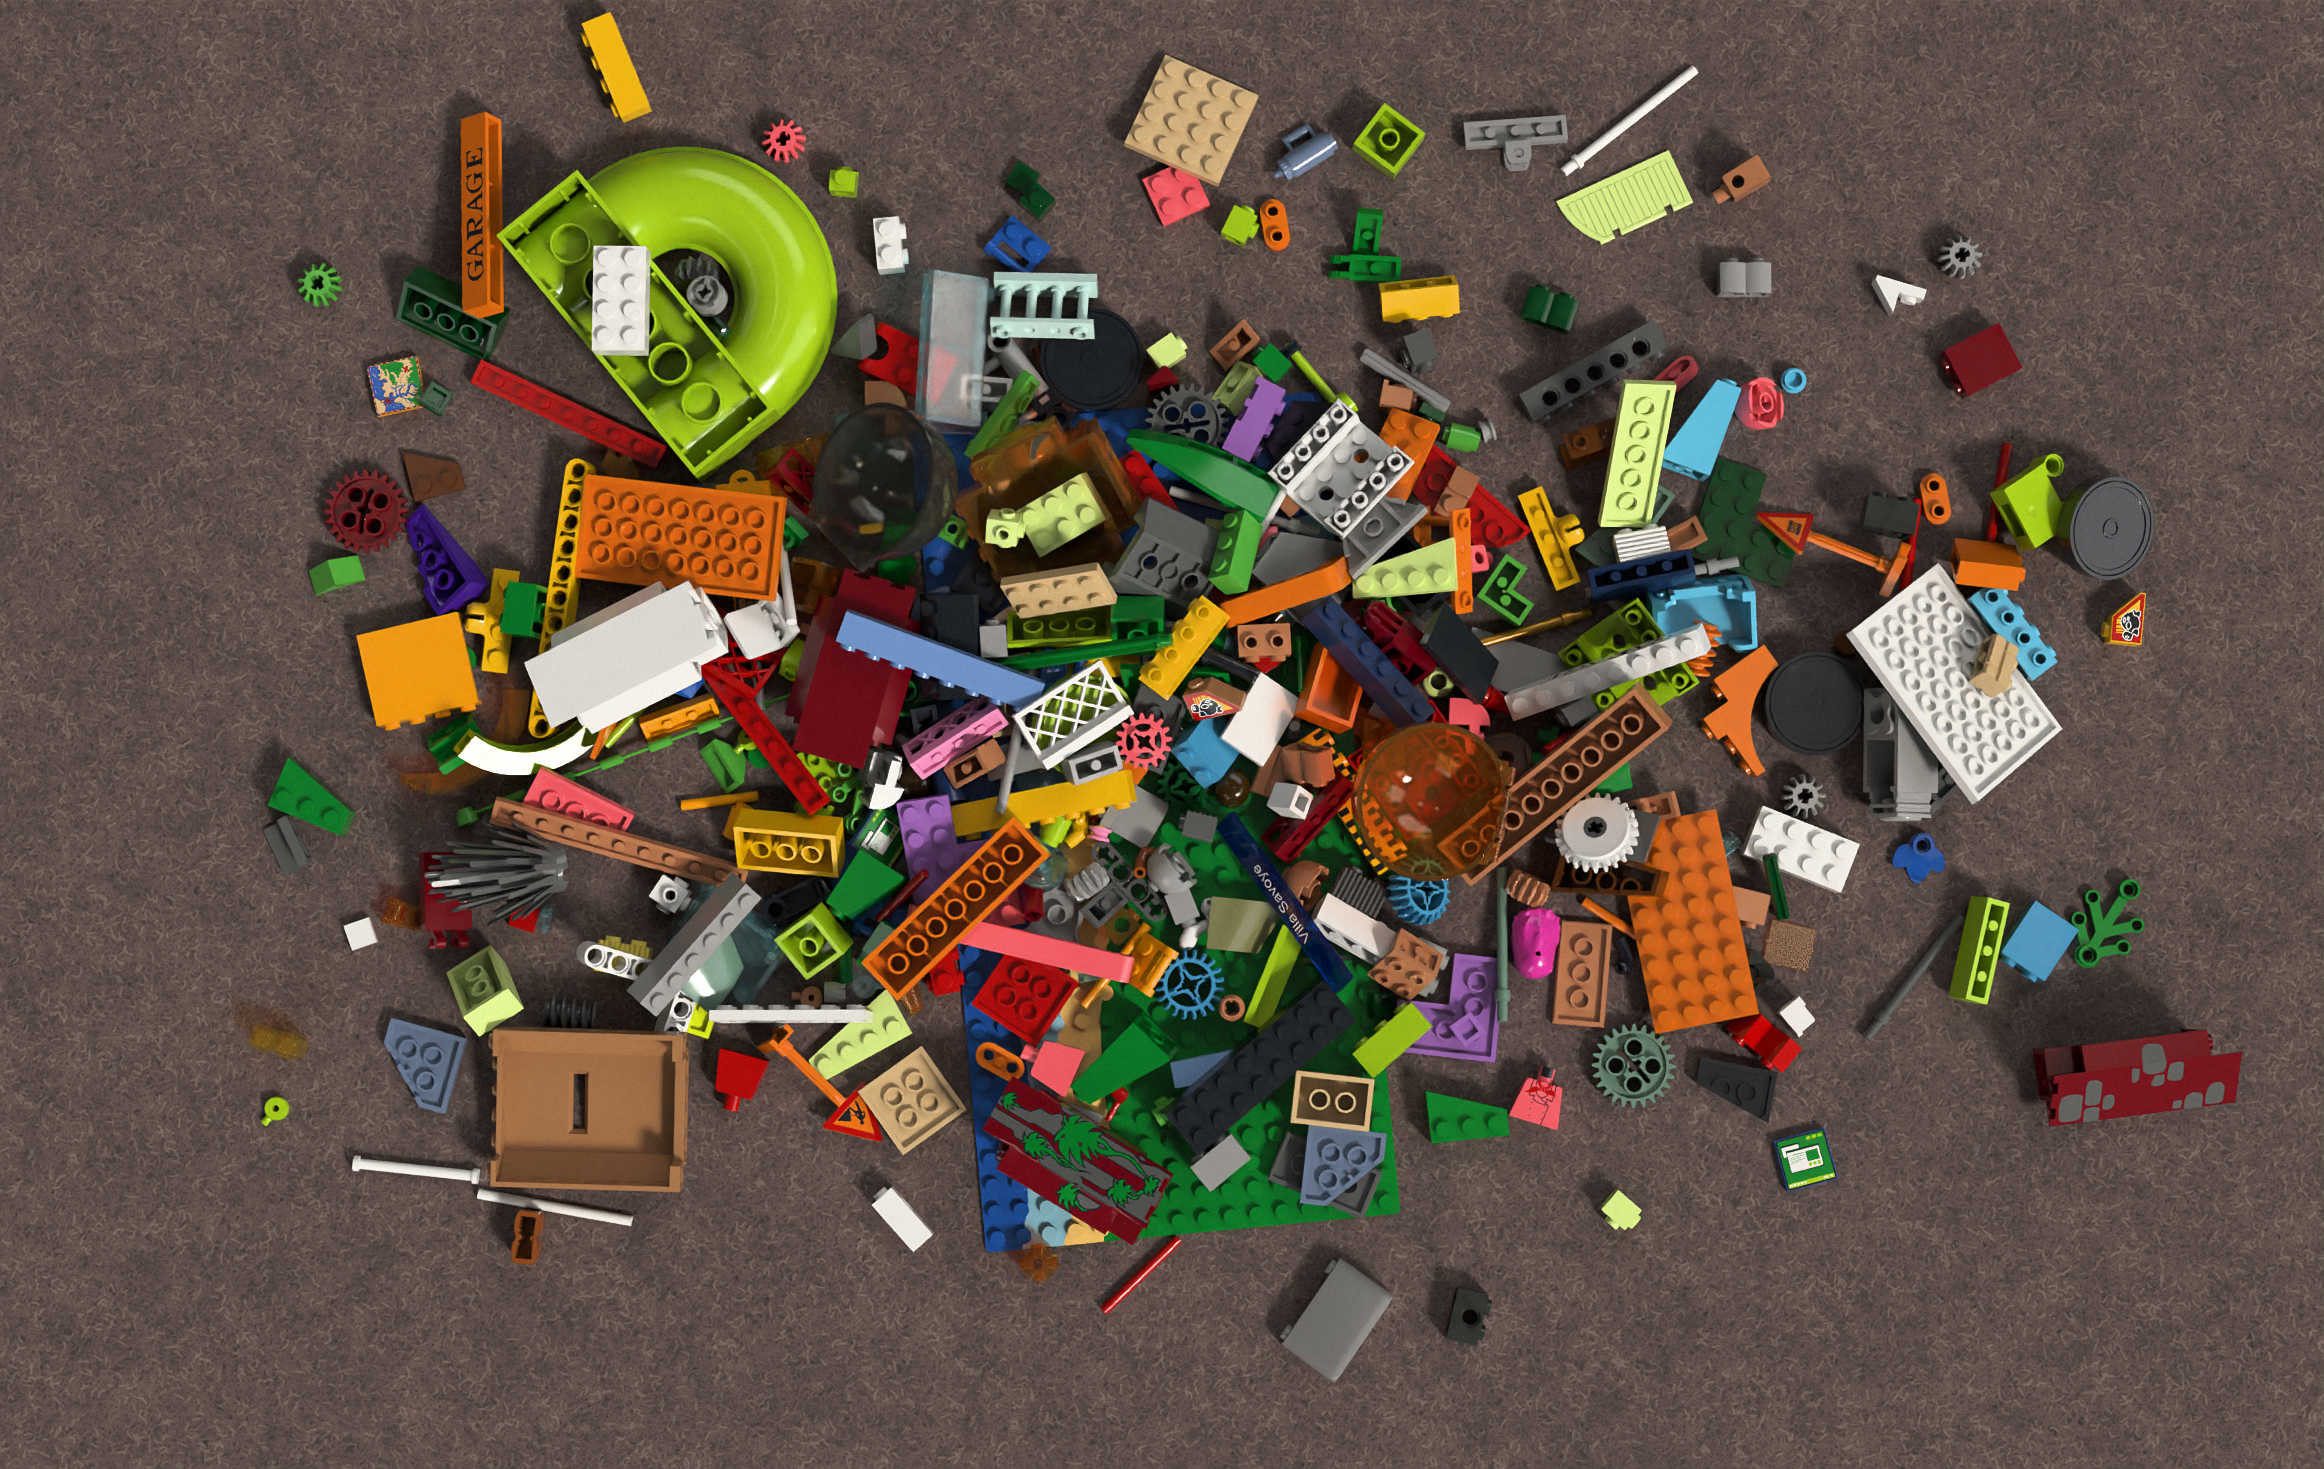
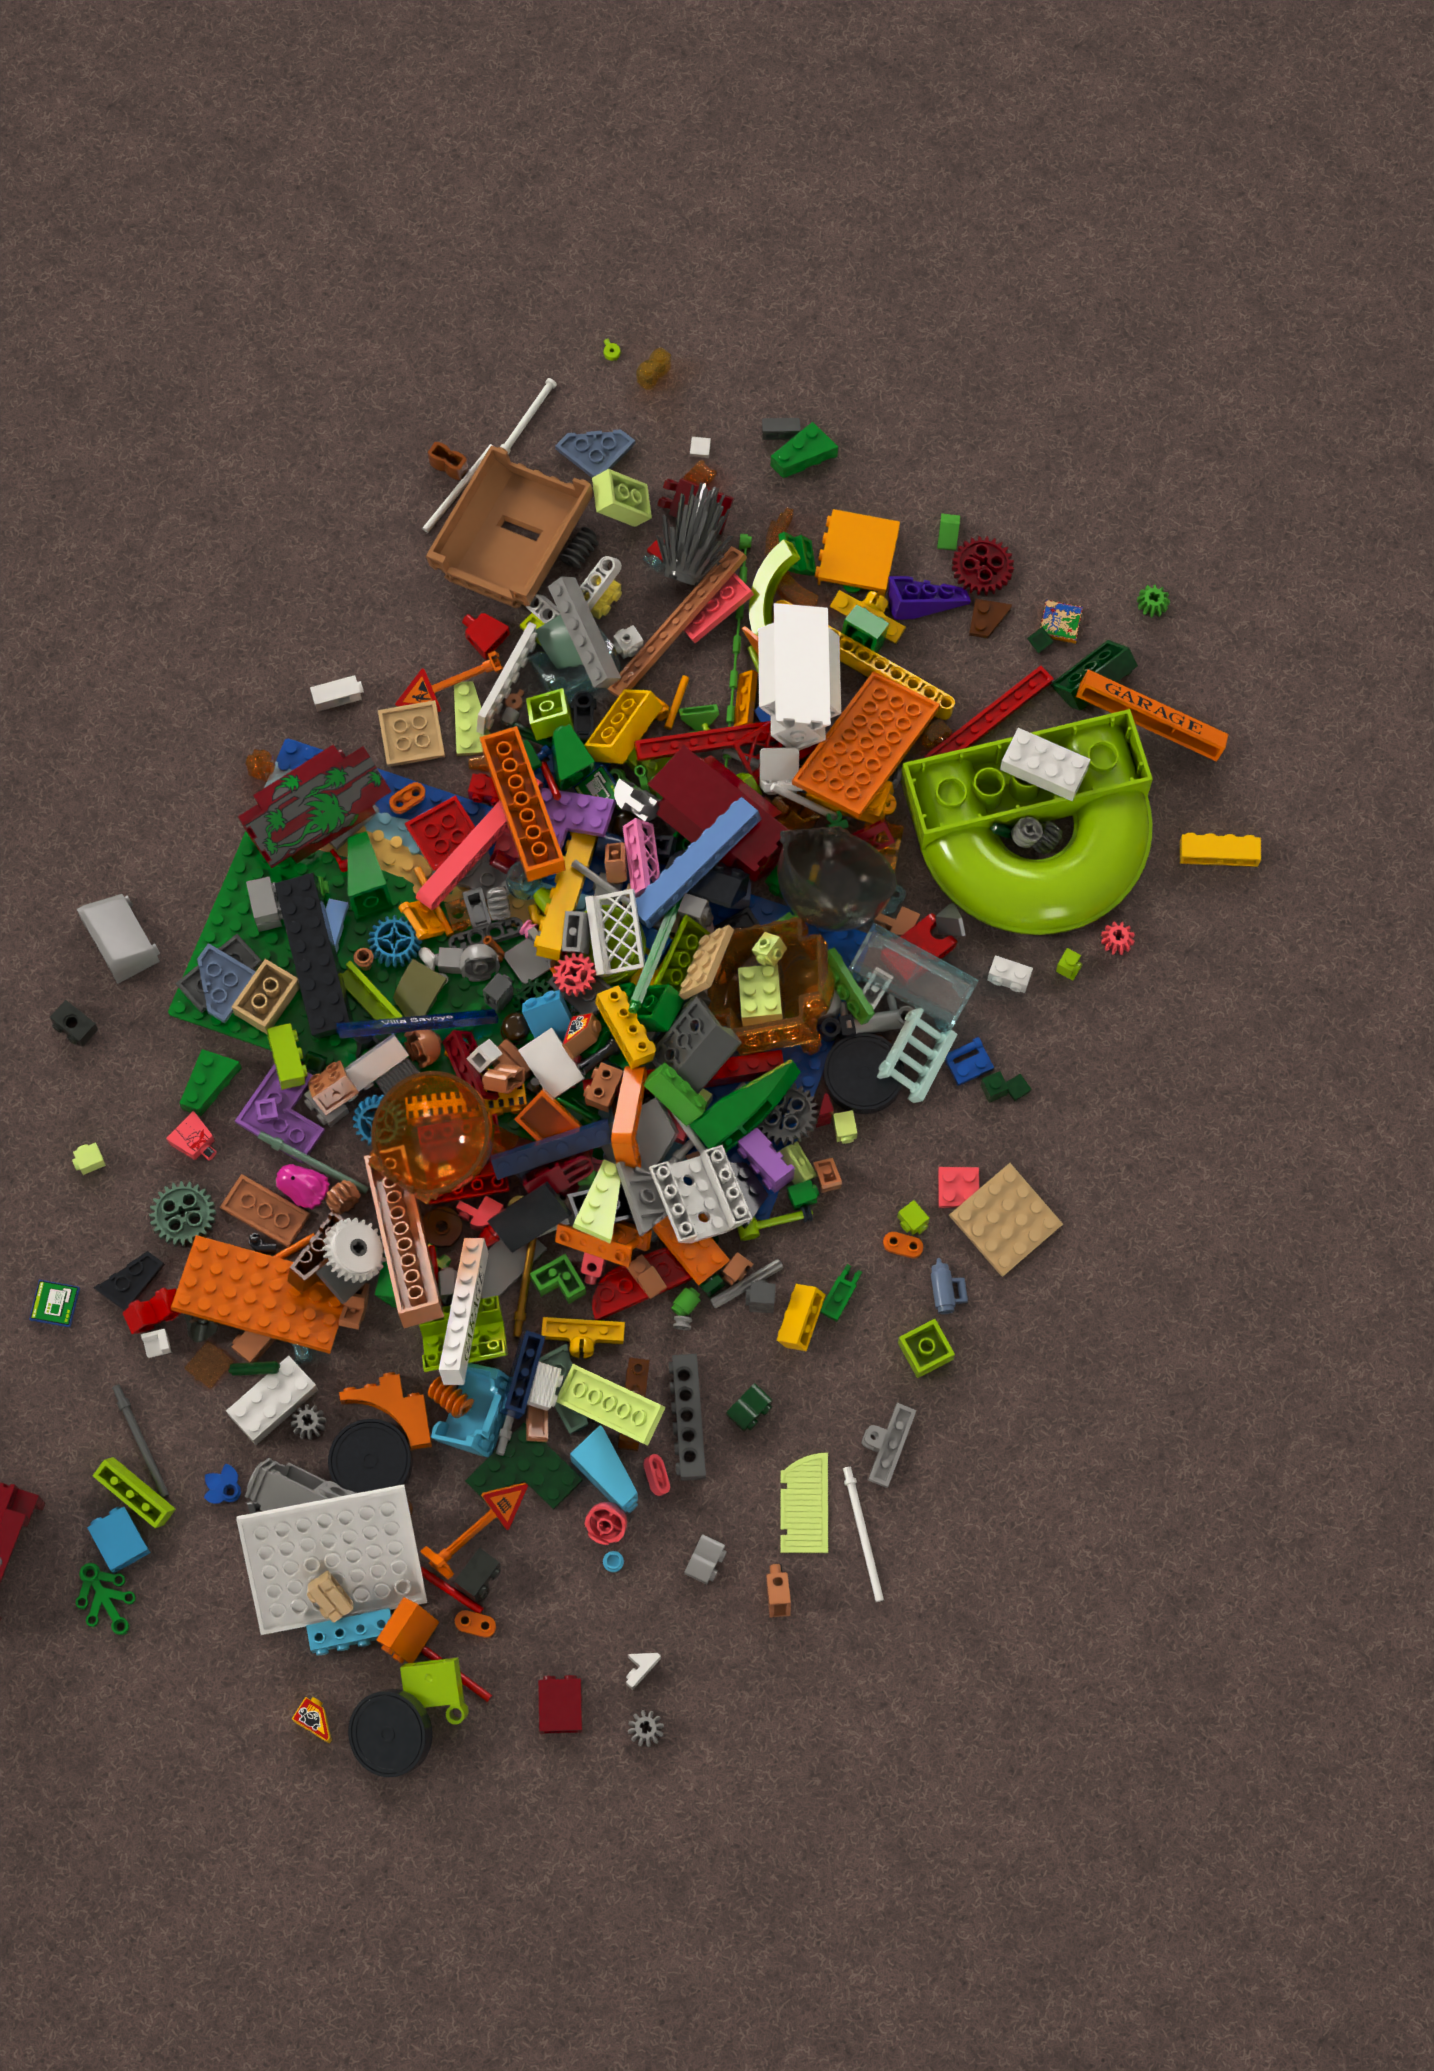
camera: 115 degrees right, 15 degrees down
(1054, 1064) = (386, 830): coral torso -> none
(1141, 1274) = (217, 828): red bar -> none
(1367, 231) = (866, 1304): green slope -> none

